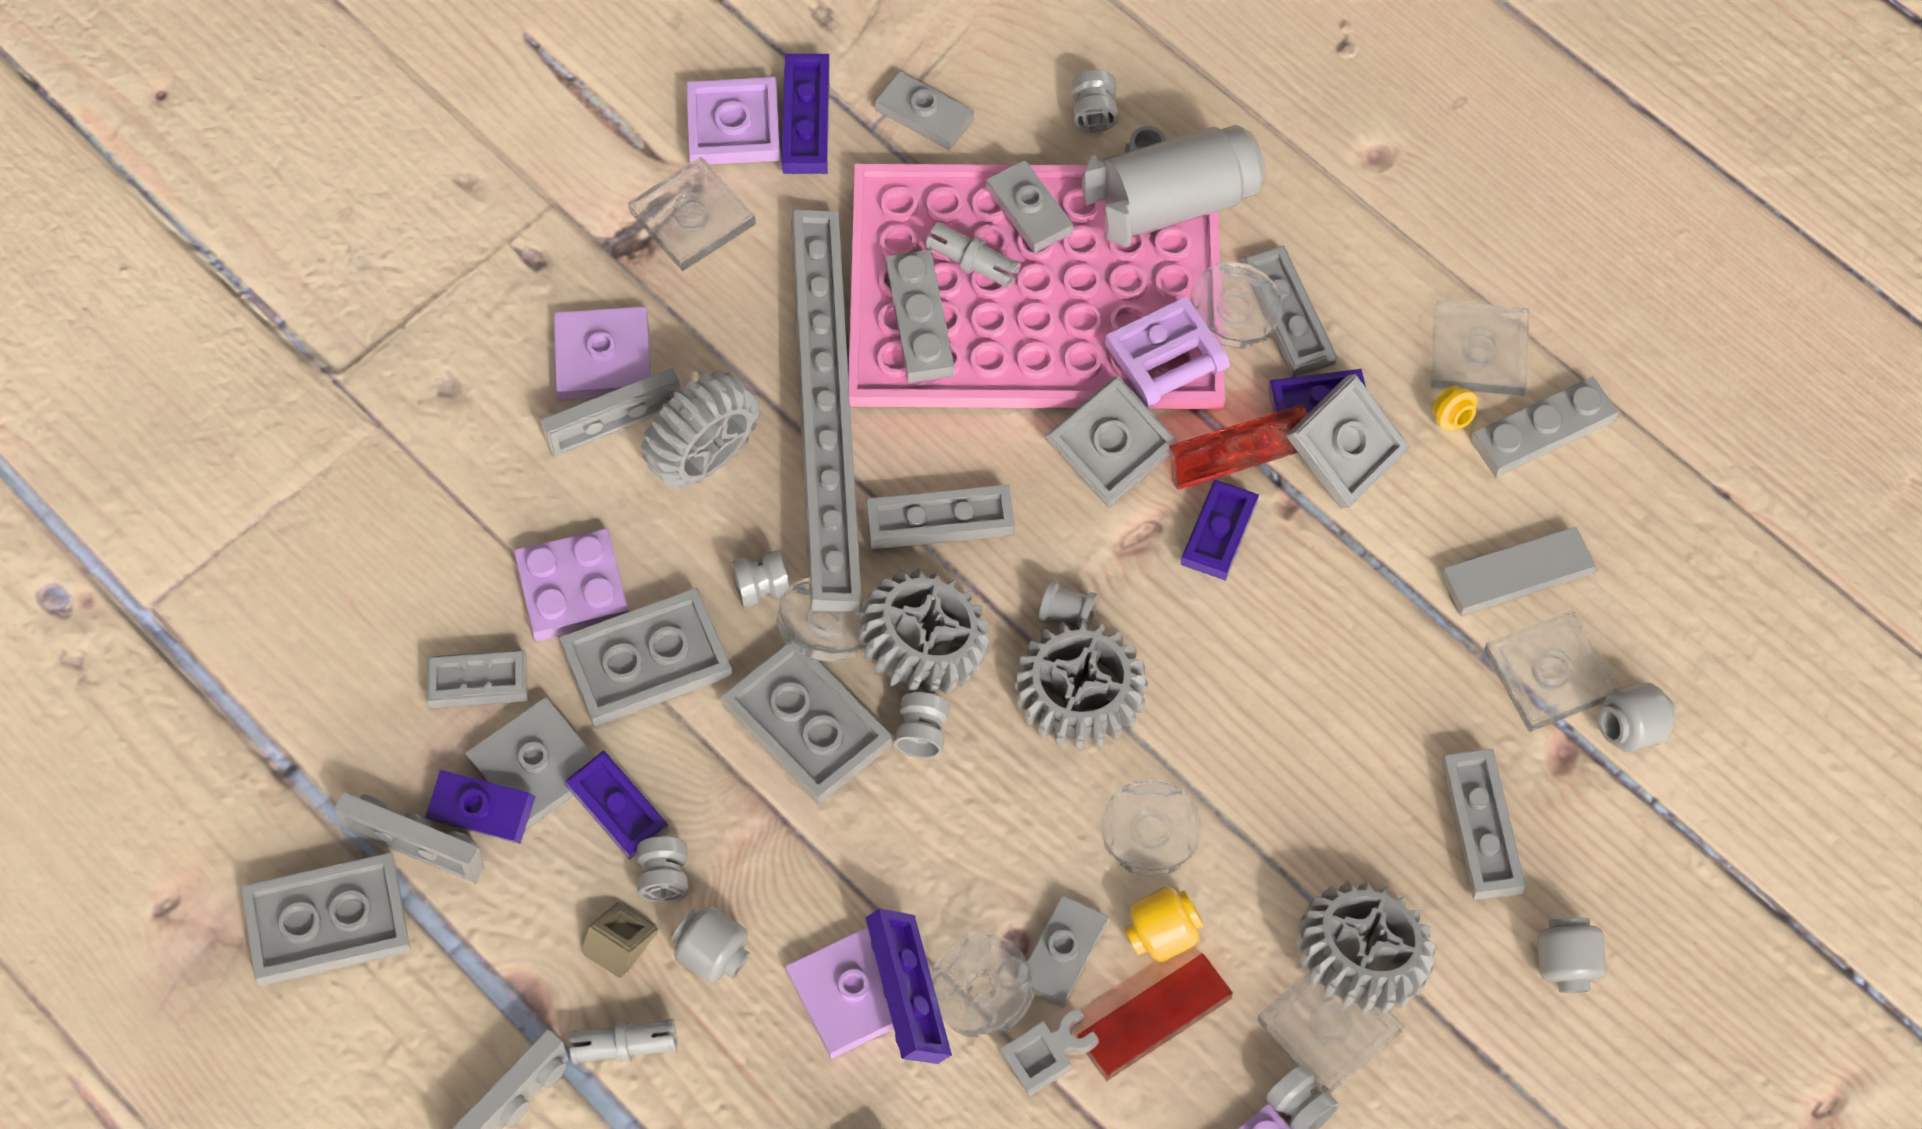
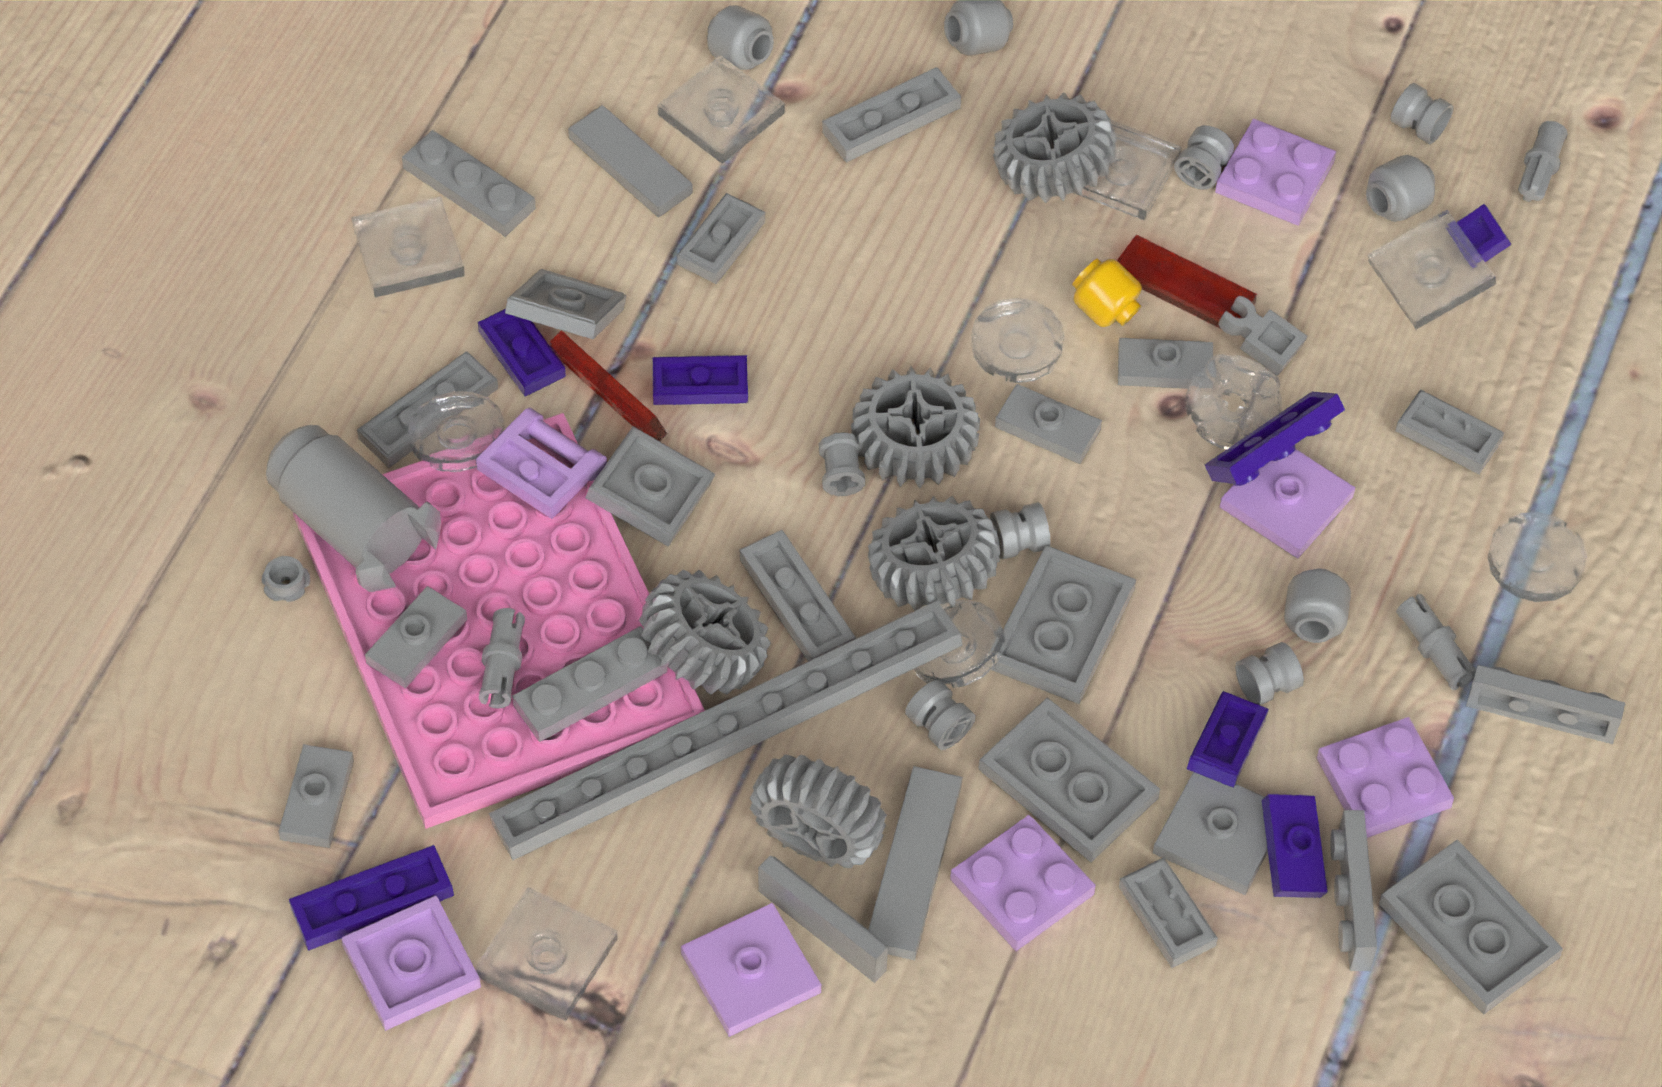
camera: 115 degrees left, 5 degrees down
(512, 928) = (1386, 776): none -> lavender plate
(617, 939) = (1344, 691): dark tan slope -> none
(636, 509) = (915, 860): none -> light grey tile
(888, 431) = (704, 632): none -> light grey gear
(1039, 812) = (1048, 423): none -> light grey plate
(1094, 100) = (249, 638): light grey wheel -> none
(1384, 609) = (721, 238): none -> light grey plate
(1455, 408) = (486, 244): yellow plate -> none

